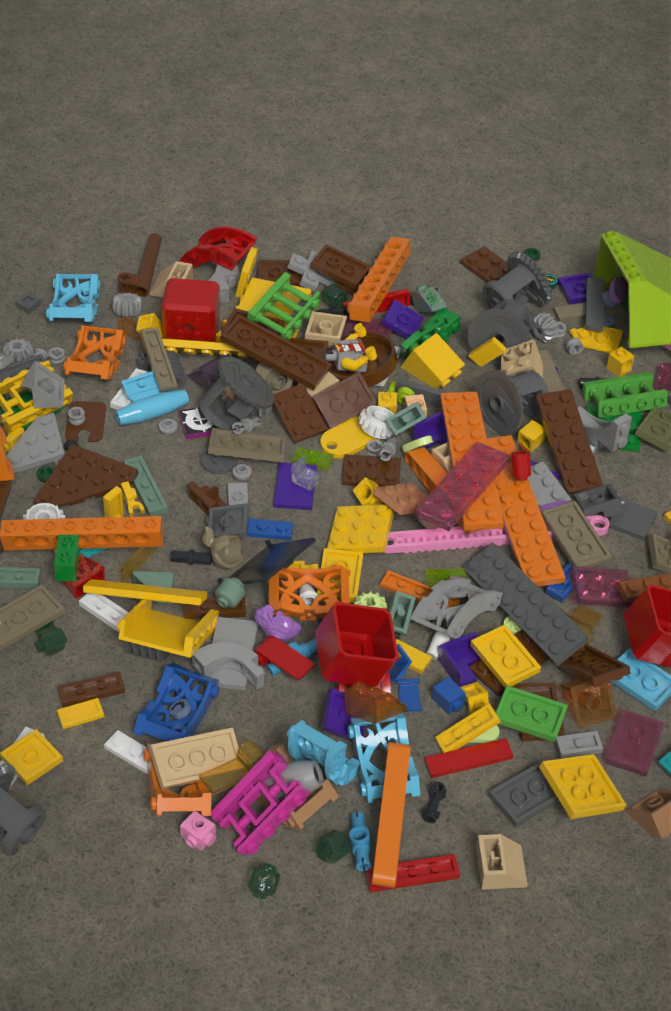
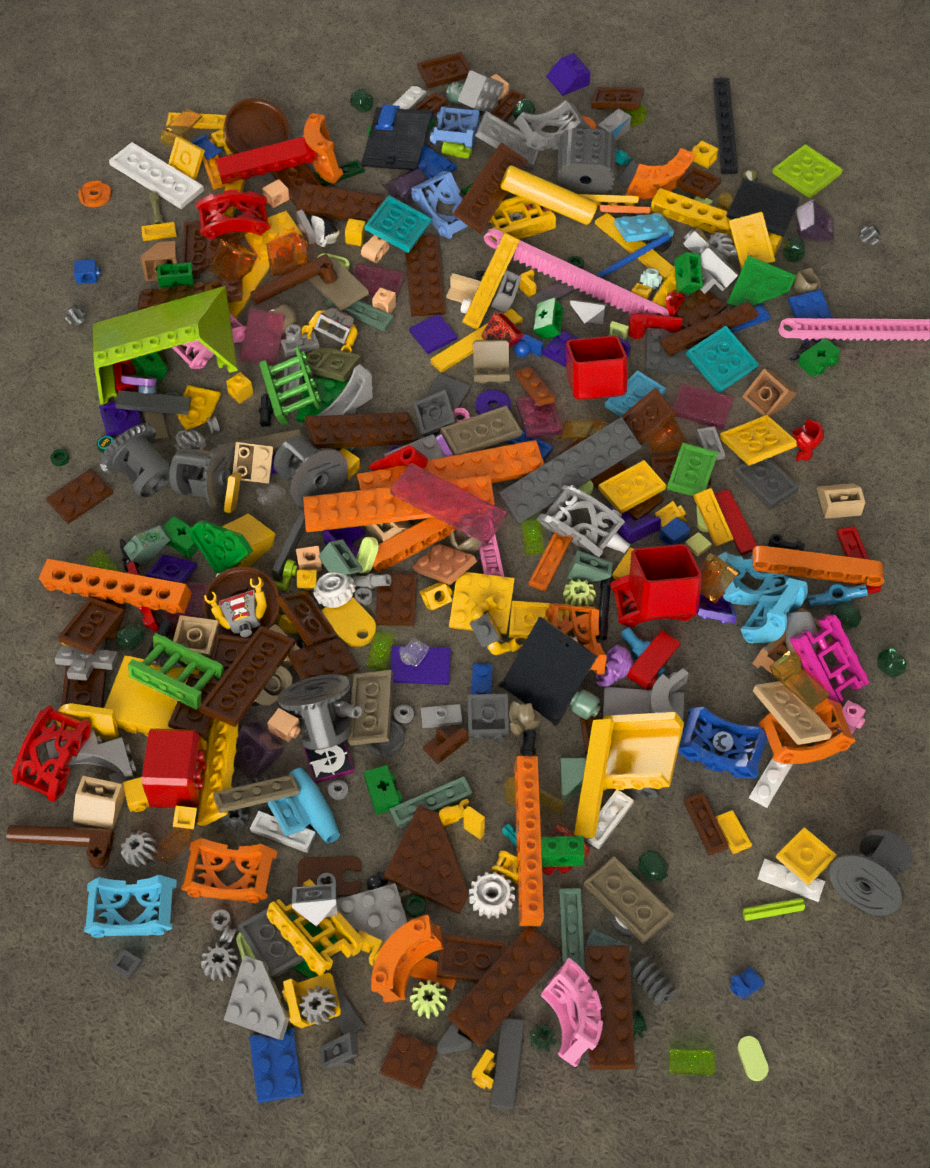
camera: 90 degrees left, 10 degrees up
(162, 451) = (375, 781): none -> green brick
(322, 523) = (487, 630): none -> torso
(412, 282) = (101, 560): none -> clear neon green plate
(437, 720) = (698, 544): none -> yellowish green tile
(589, 839) = (808, 438): none -> red hair
(626, 548) = (491, 396): none -> dark purple tile

